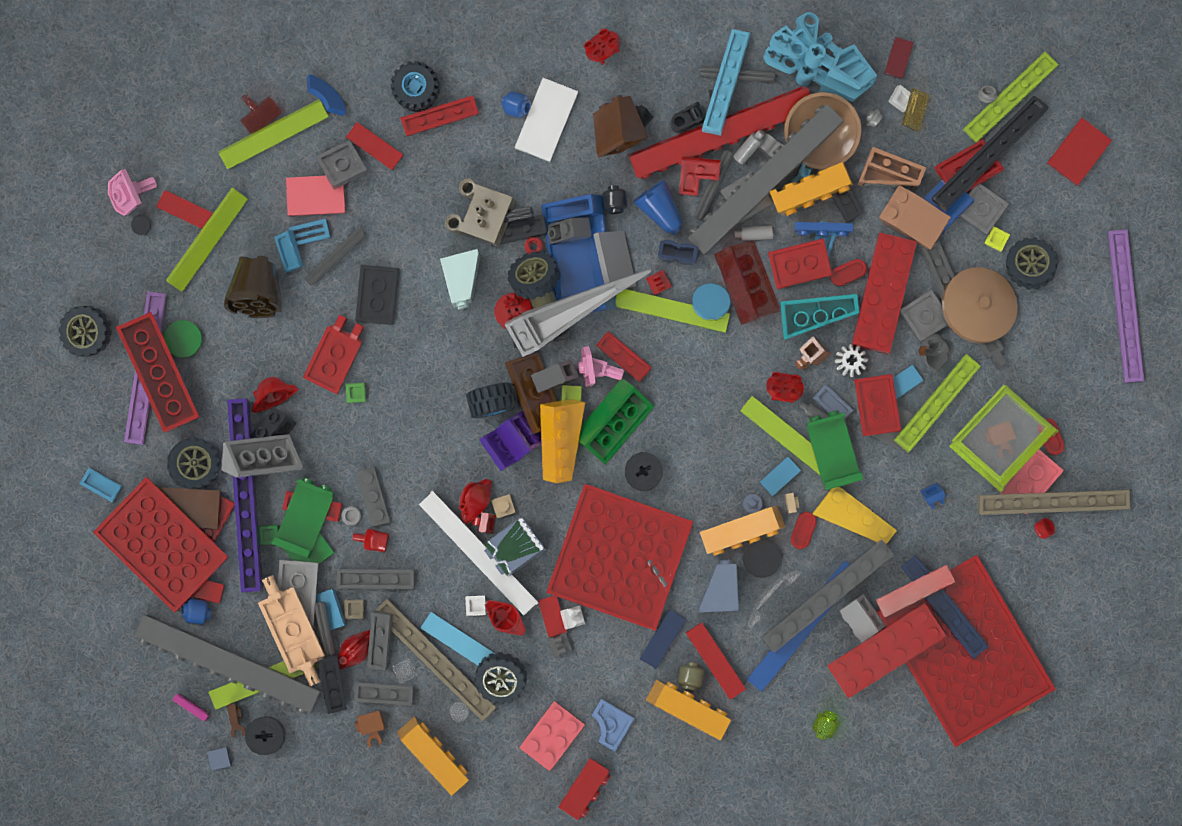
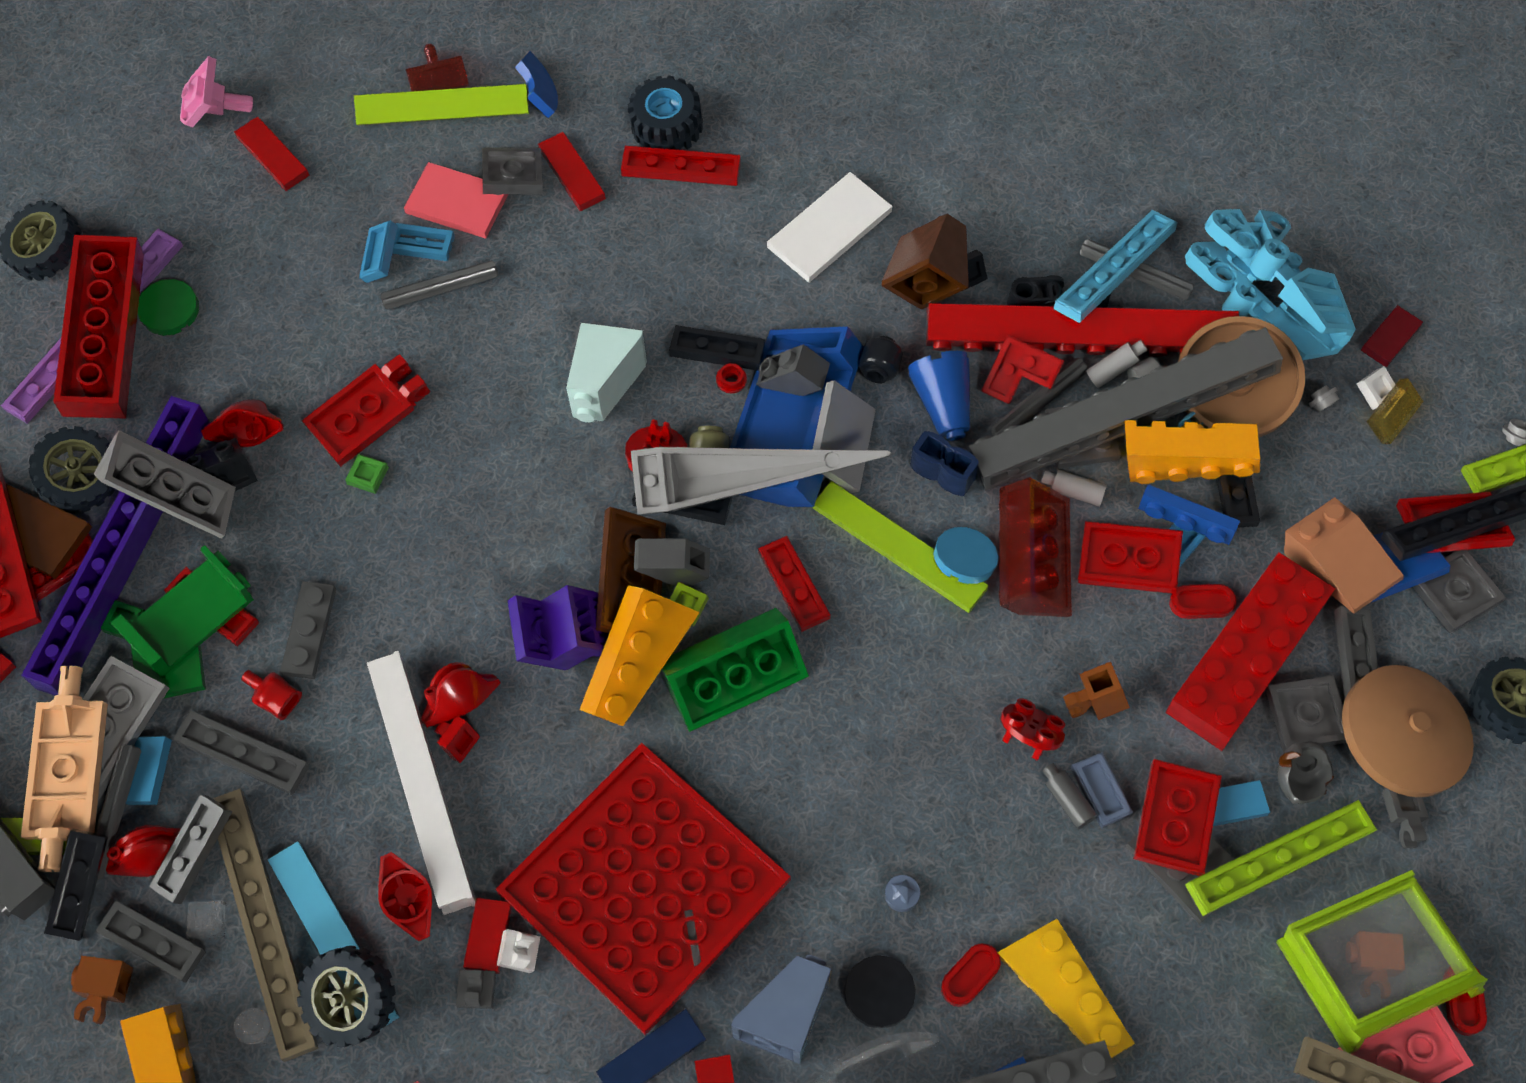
camera: 20 degrees right, 20 degrees down
(140, 225) = (201, 148): black tile -> none
(206, 239) = (275, 195): lime tile -> none
(254, 288) = (297, 271): dark brown cone -> none
(351, 516) = (260, 644): light grey tile -> none
(354, 609) = (184, 786): dark tan tile -> none
(377, 295) = (470, 356): black tile -> none
(475, 605) = (367, 861): white plate -> none
(487, 214) = (681, 305): dark tan piece -> none
(491, 400) = (557, 553): black wheel -> none
(503, 506) = (498, 727): tan plate -> none
(514, 547) = (479, 789): slope -> none
(516, 104) = (795, 188): blue head -> none
(536, 282) = (710, 407): black wheel -> none
(595, 368) = (742, 576): bright pink piece -> none
(602, 46) = (961, 157): red plate -> none
(648, 482) = (728, 772): black piece -> none
(658, 282) = (896, 499): red tile -> none
(742, 529) = (868, 925): light orange wedge -> none
(780, 432) = (1010, 818): lime tile -> none
(780, 476) = (967, 868): dark azure tile -> none
(791, 503) = (969, 918): tan plate -> none
(811, 313) = (1129, 633): teal wedge -> none
(833, 450) = (1075, 857): green panel -> none
(856, 365) = (1146, 725): white gear -> none
(890, 171) = (1321, 470): nougat wedge -> none
(932, 494) = (1222, 1007): blue tile -> none
(997, 239) = (1467, 645): neon yellow tile -> none

